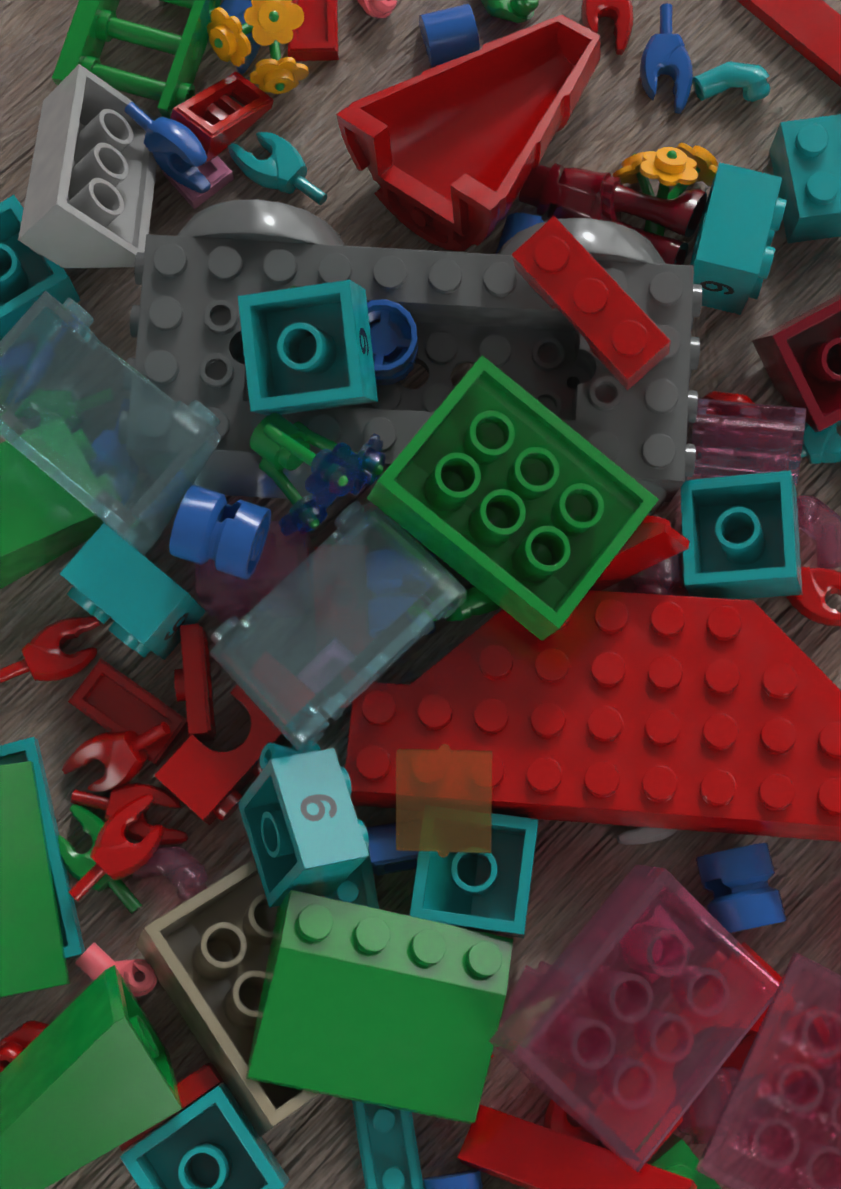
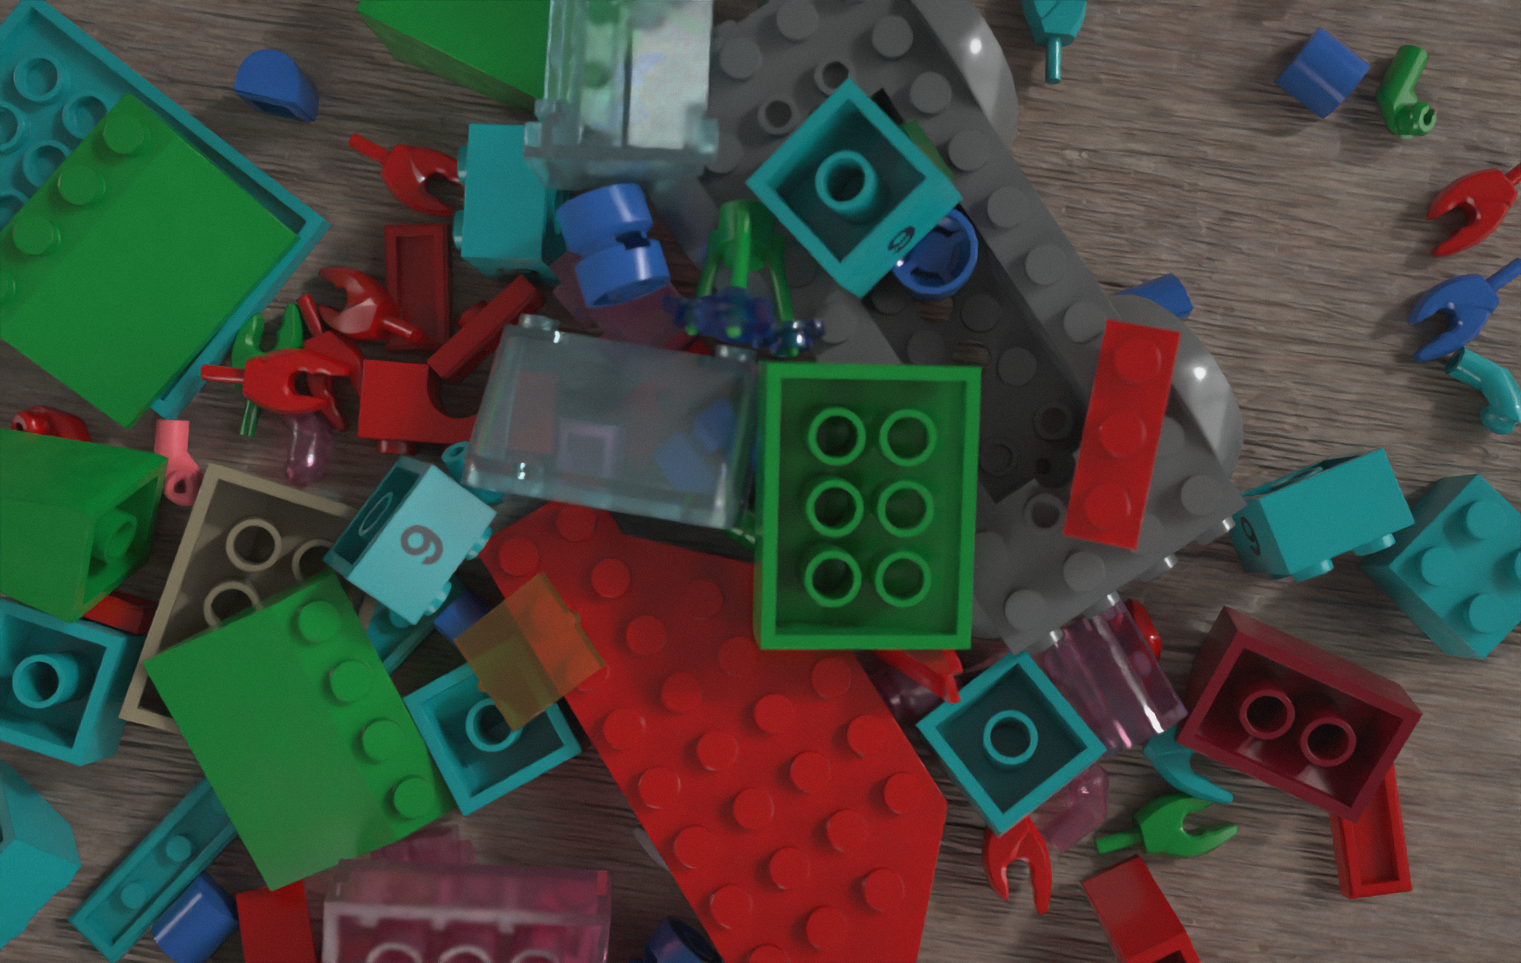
camera: 50 degrees right, 10 degrees up
(470, 130) = (1237, 171): red cone -> none
(602, 197) = (1254, 347): dark red piece -> none
(671, 167) = (1341, 405): light orange plant -> none

